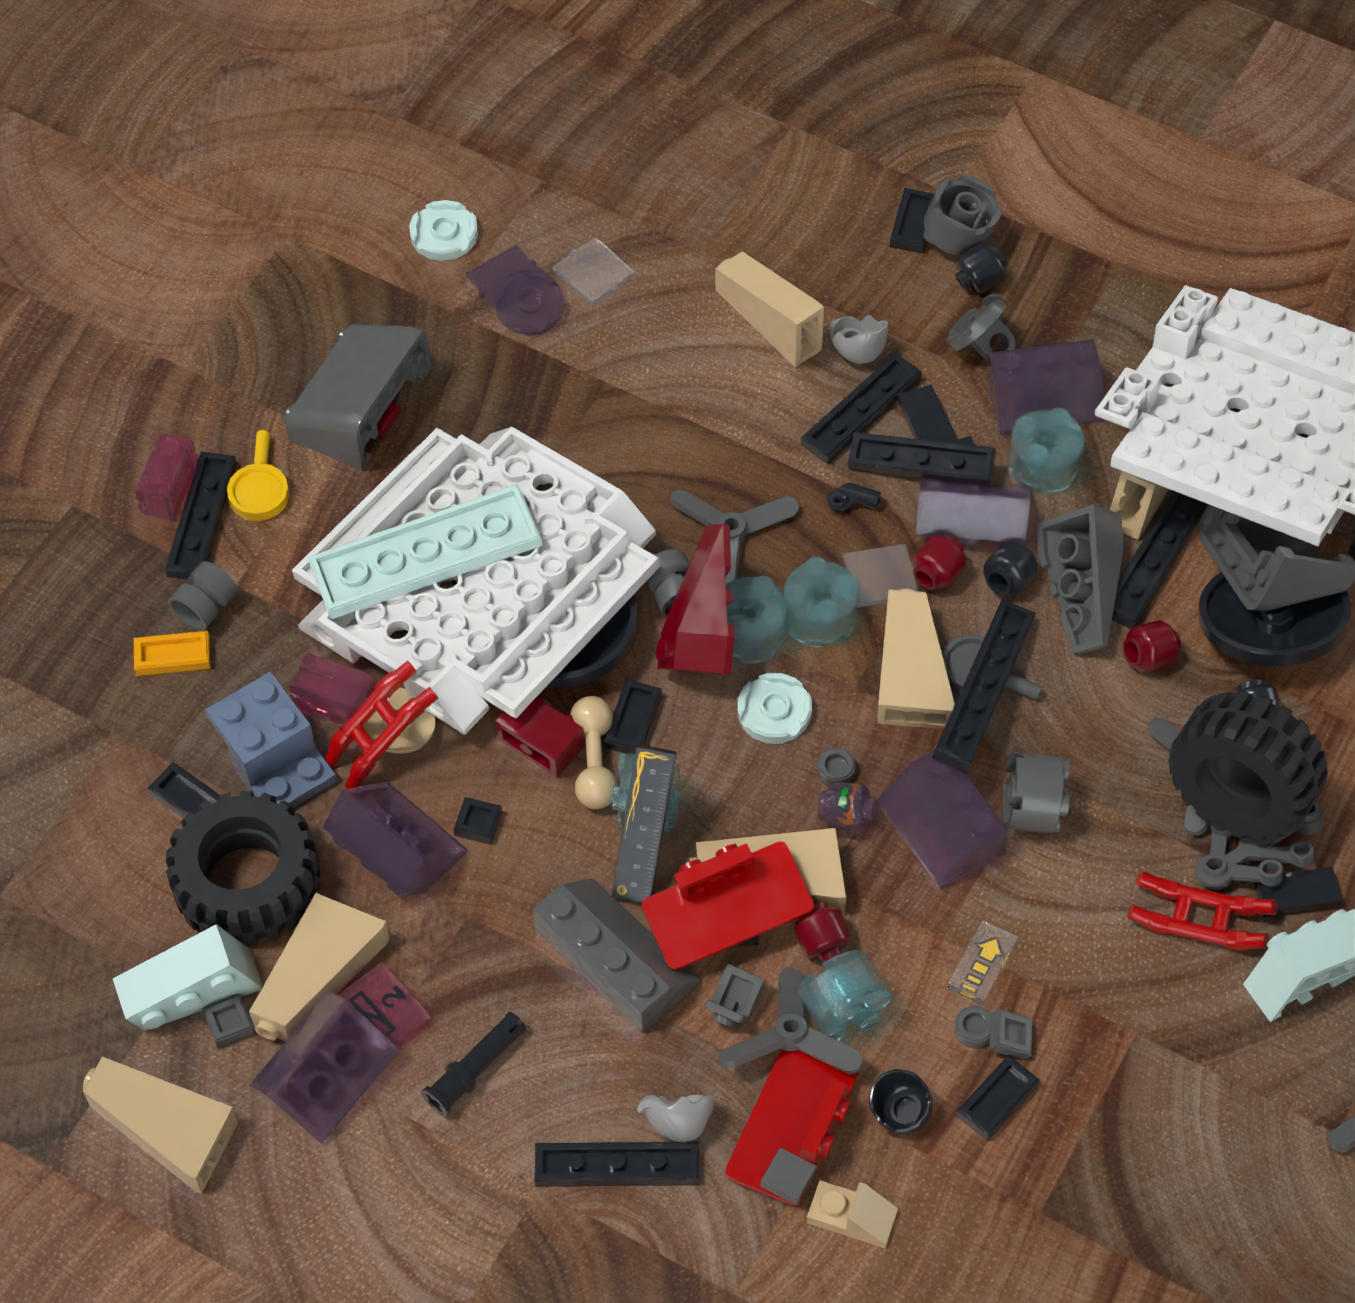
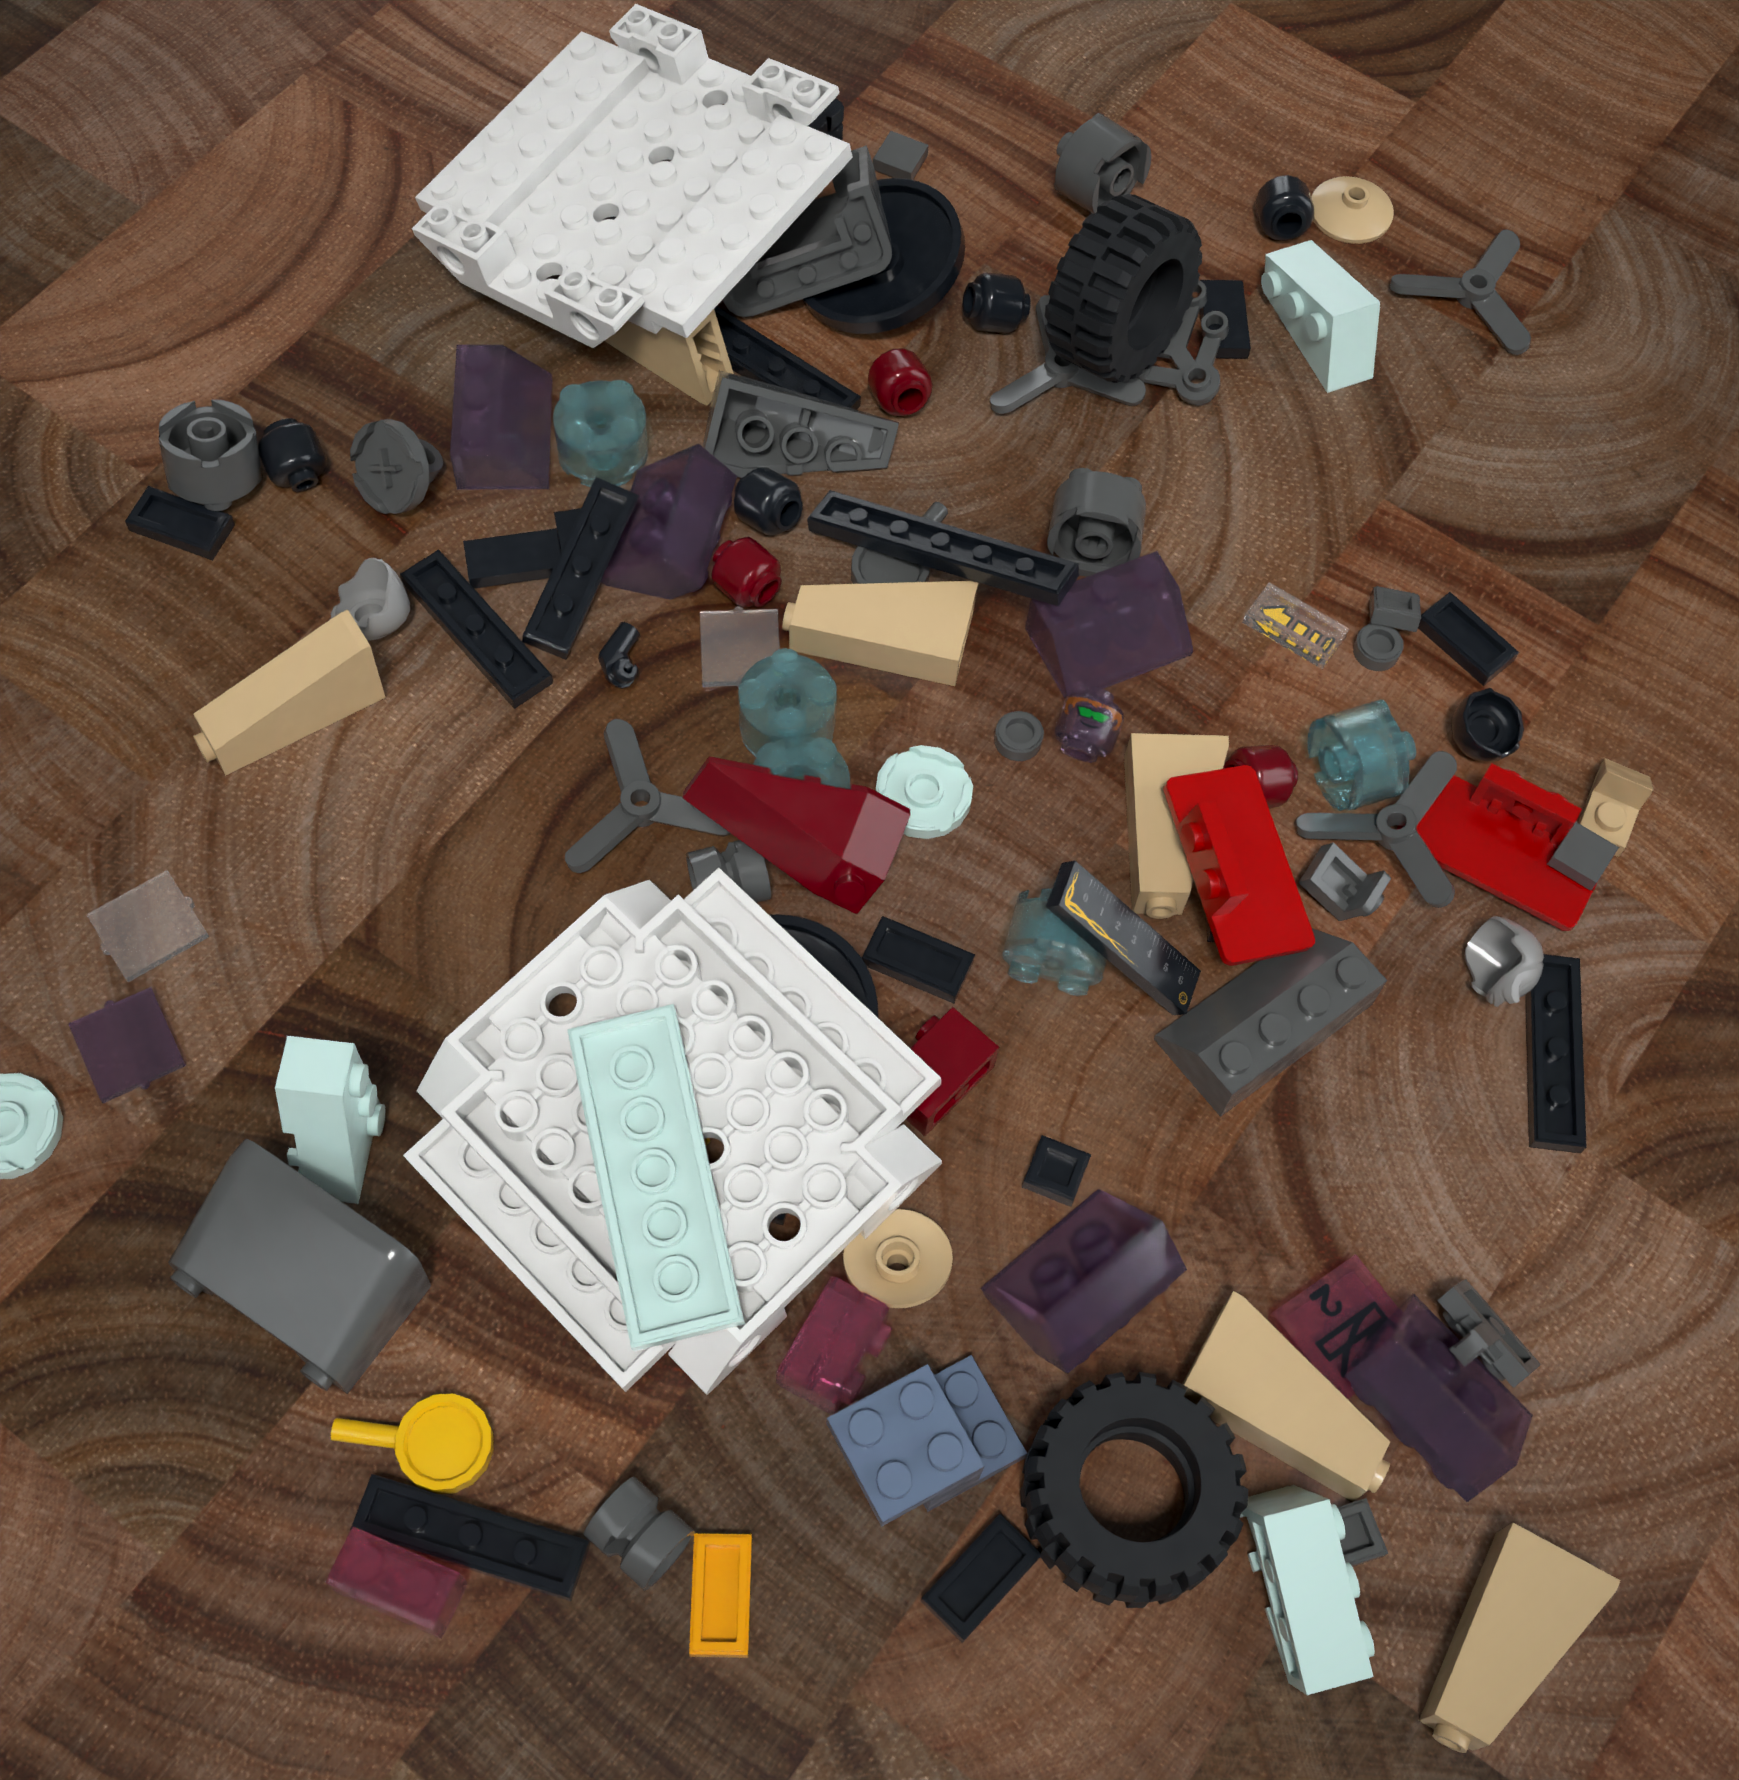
camera: 90 degrees left, 5 degrees up
(373, 1100) = (1485, 1335): none -> dark grey hinge
(395, 720) = (901, 1260): red piece -> none
(453, 377) = (331, 1111): none -> light aqua wedge
(461, 1075) = (1442, 1221): black pin -> none
(528, 302) = (185, 1015): clear purple tile -> none
(595, 783) = (1029, 1008): tan piece -> none
(1222, 902) = (1240, 382): red piece -> none

